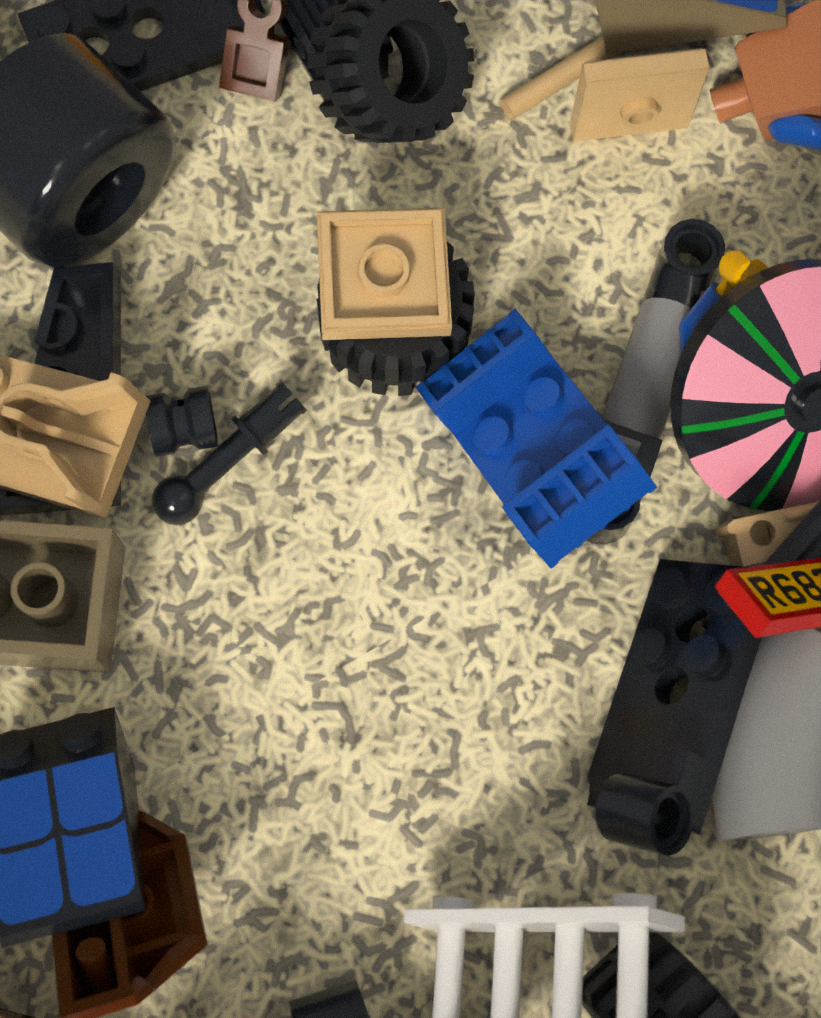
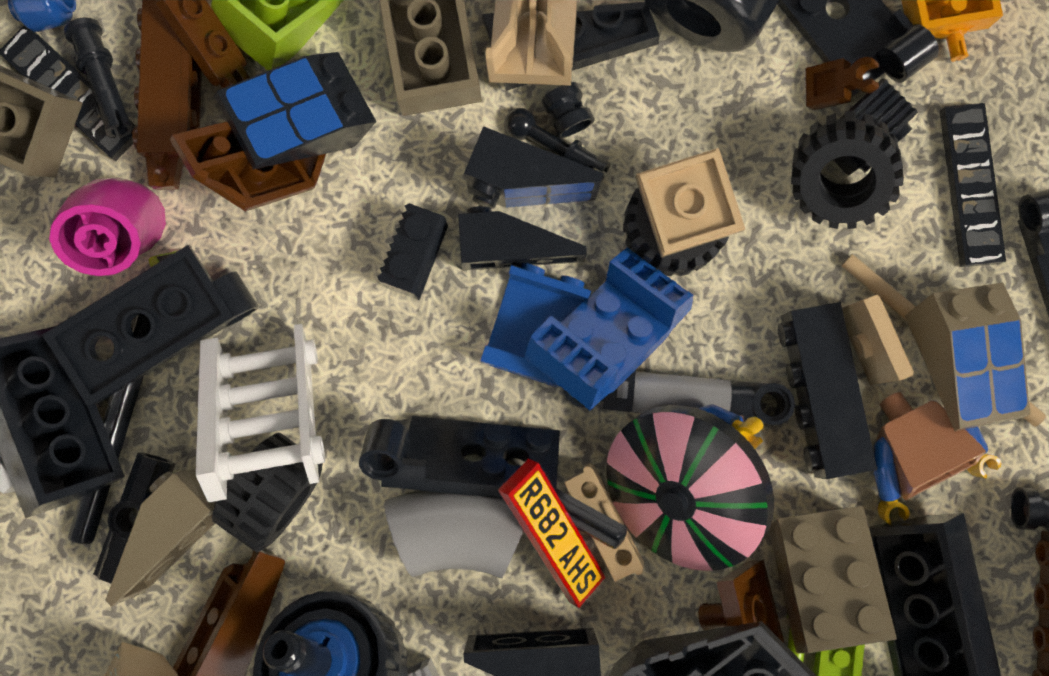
camera: 80 degrees right, 10 degrees up
(260, 512) = (523, 175): none -> black slope
(335, 703) = (413, 251): none -> black brick
(355, 561) = (502, 240): none -> black slope
(482, 561) = (524, 308): none -> blue panel
(690, 174) = (826, 391): none -> black brick

